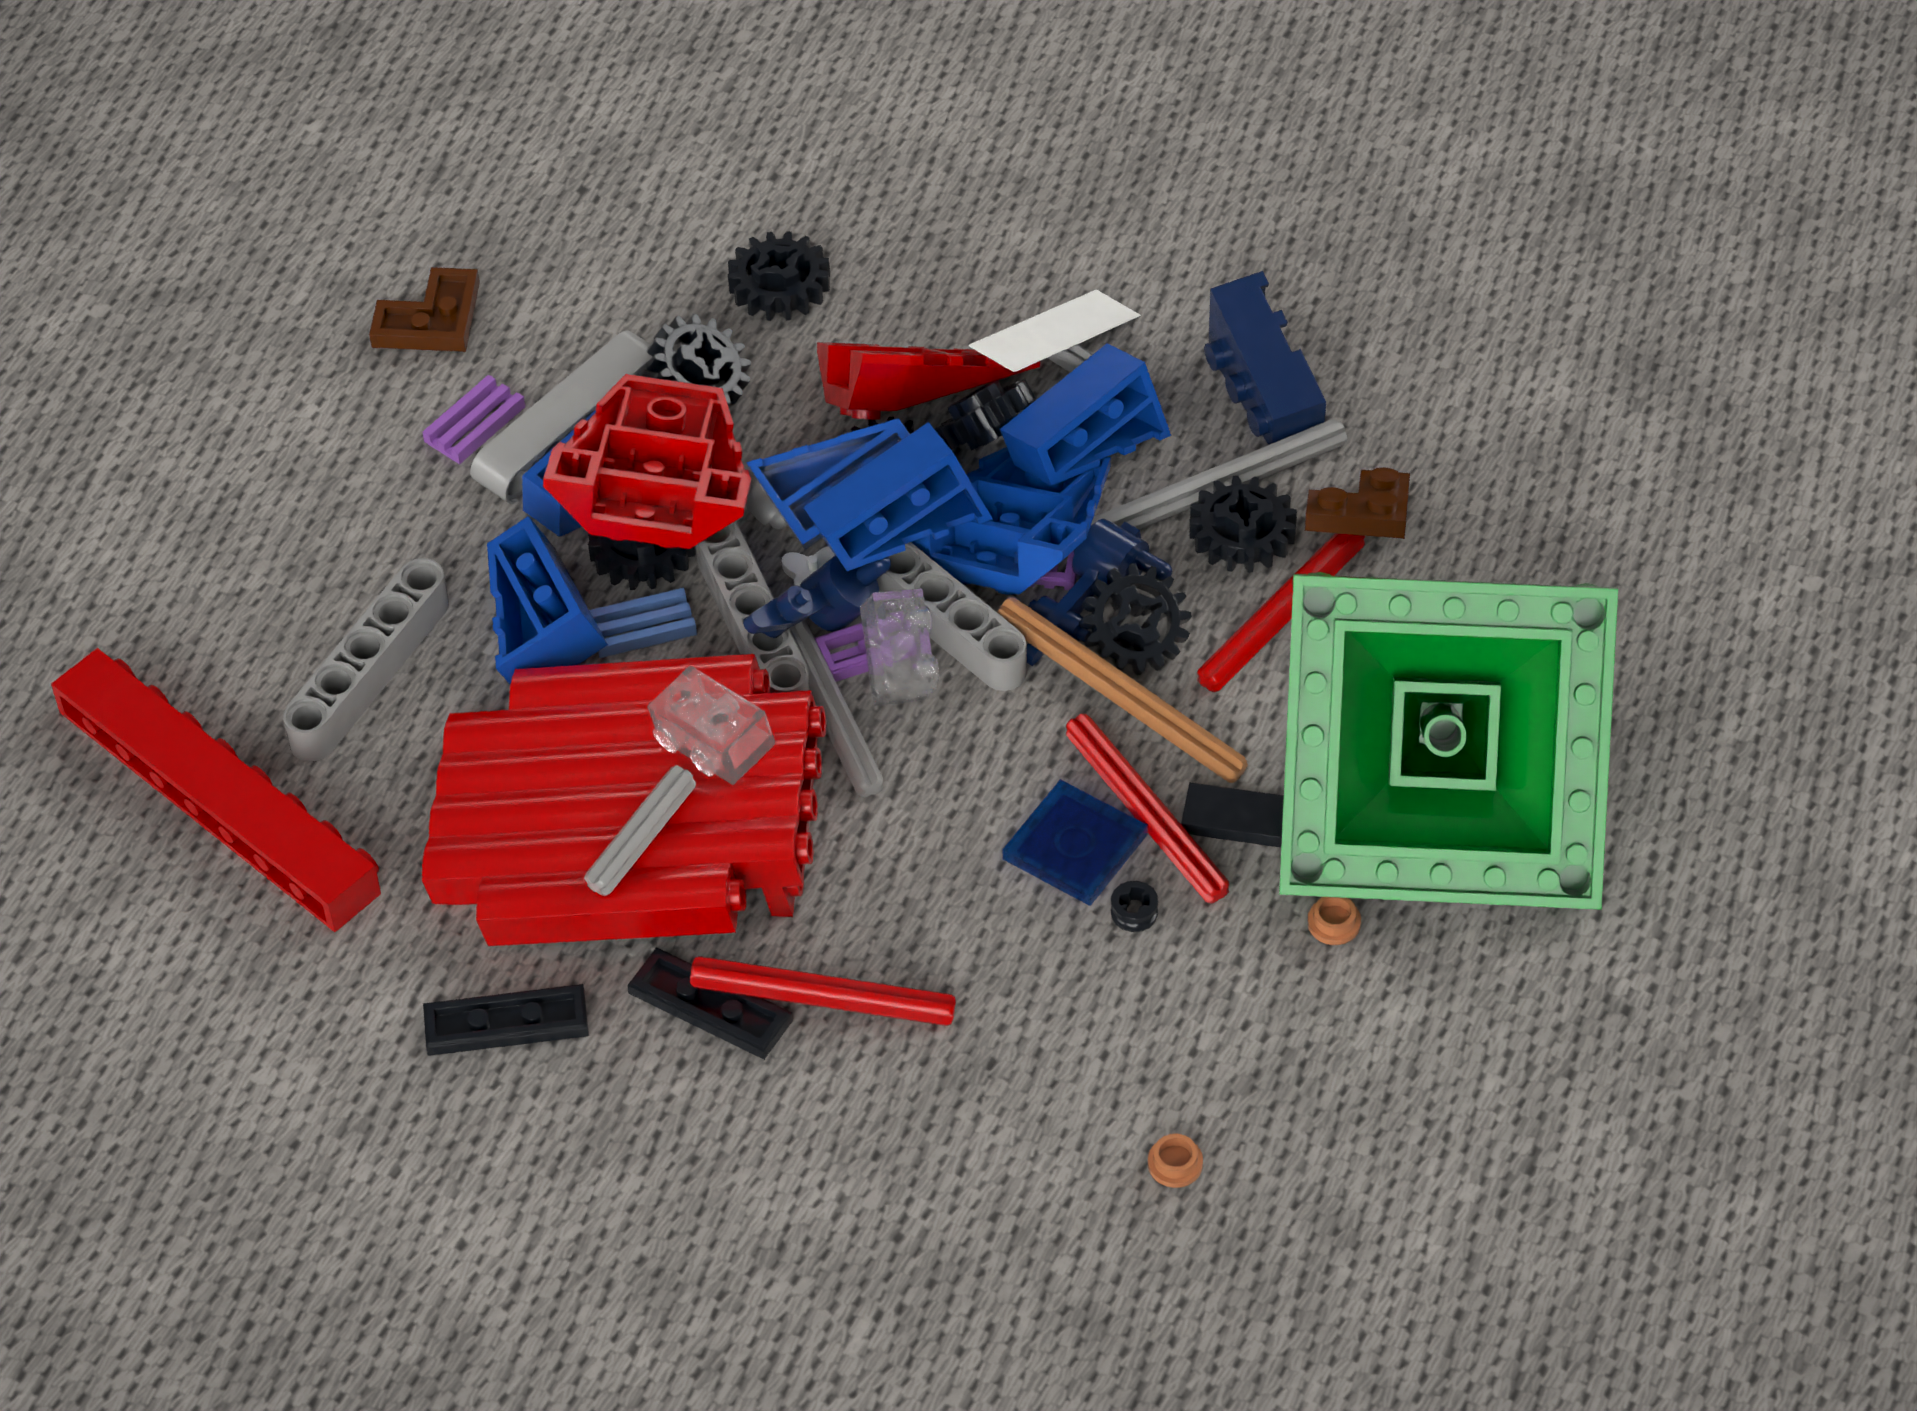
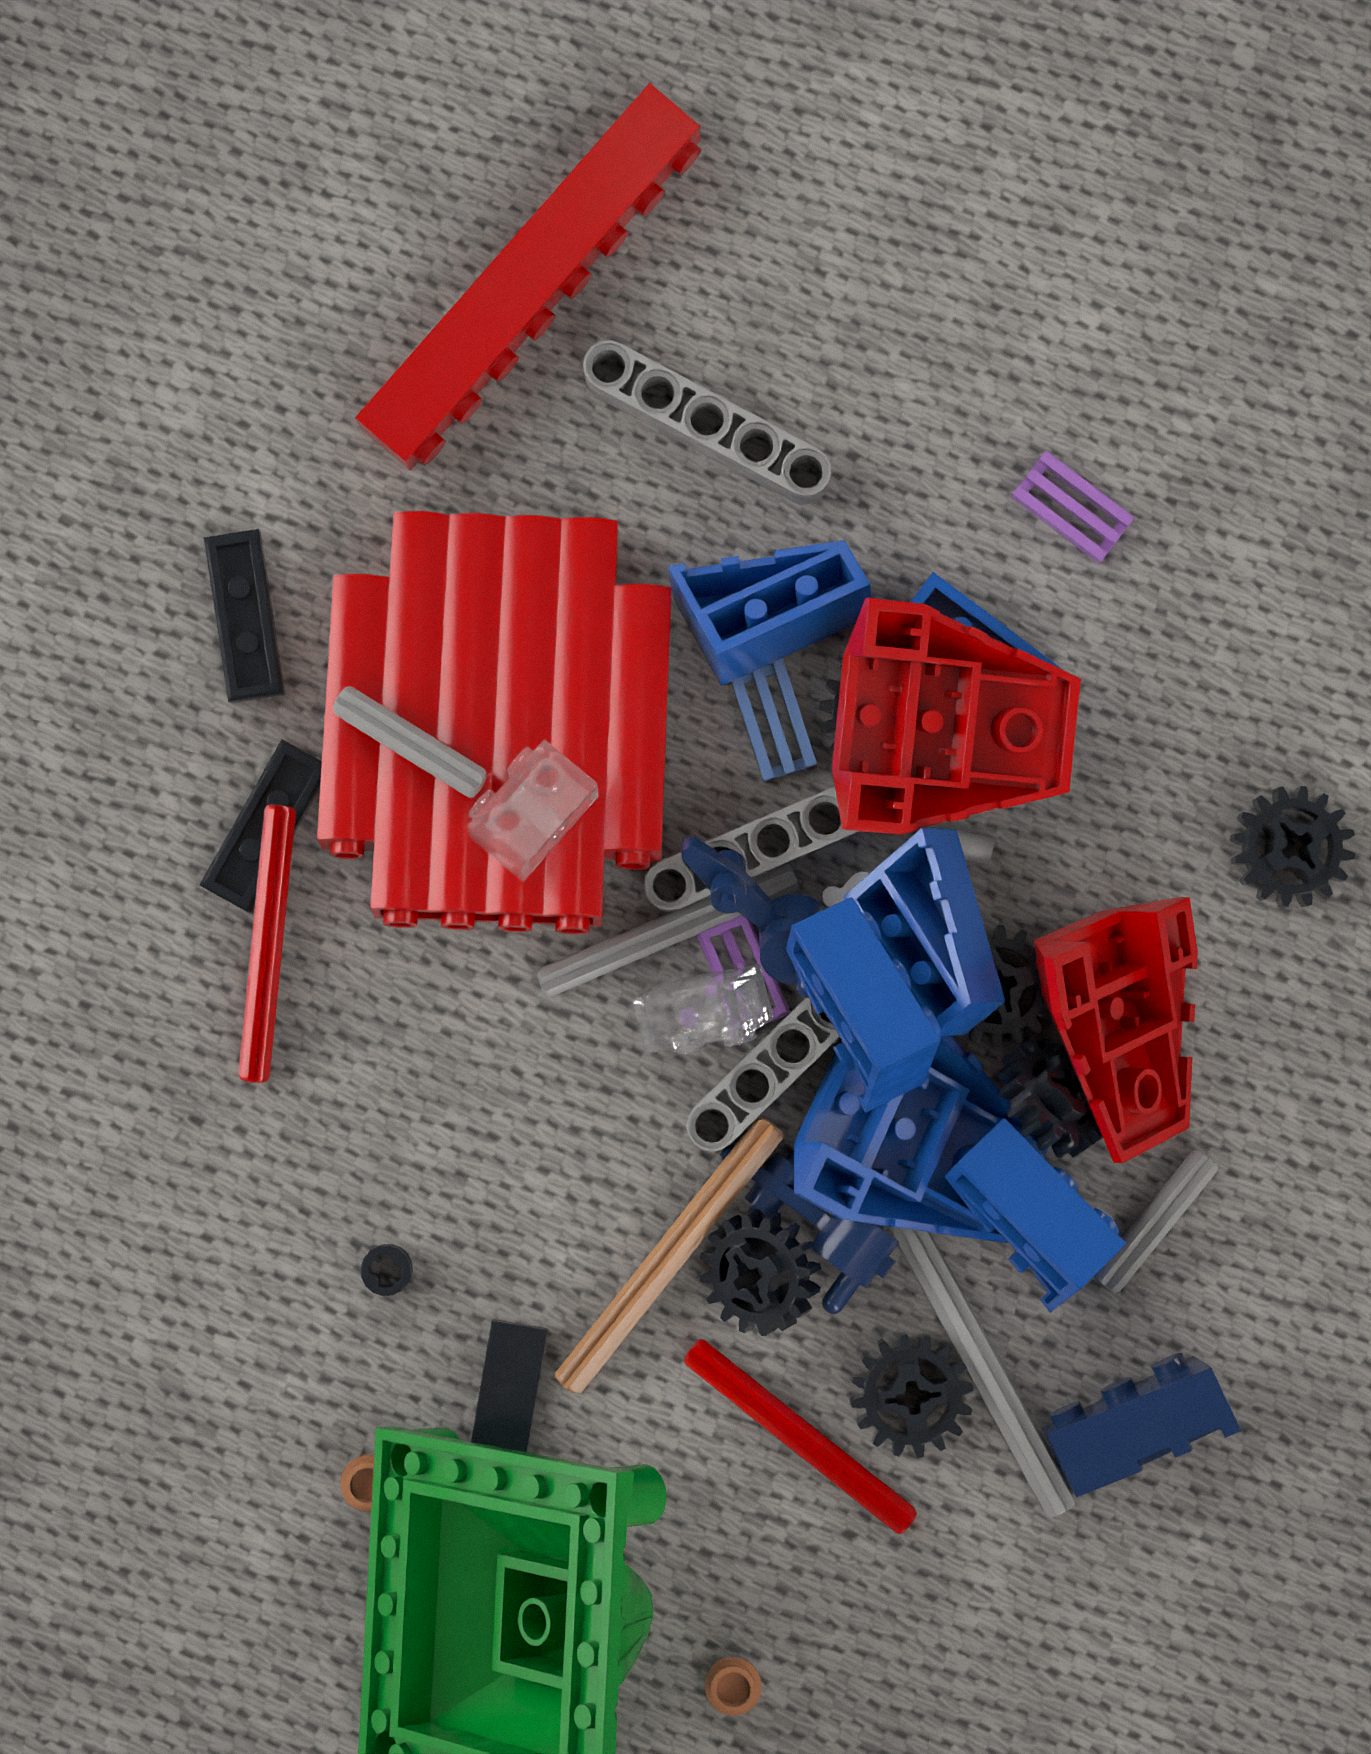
camera: 90 degrees right, 35 degrees up
(435, 324) = (1218, 453): reddish brown plate -> none
(553, 417) = (1071, 615): light grey beam -> none
(702, 358) = (1159, 753): black gear -> none
(1054, 330) = (1180, 1178): white sticker -> none
(1075, 842) = (473, 1205): clear blue tile -> none
(1147, 808) = (518, 1283): red axle -> none
(1175, 1161) = (68, 1311): nougat plate -> none
(1374, 511) = (921, 1543): reddish brown plate -> none

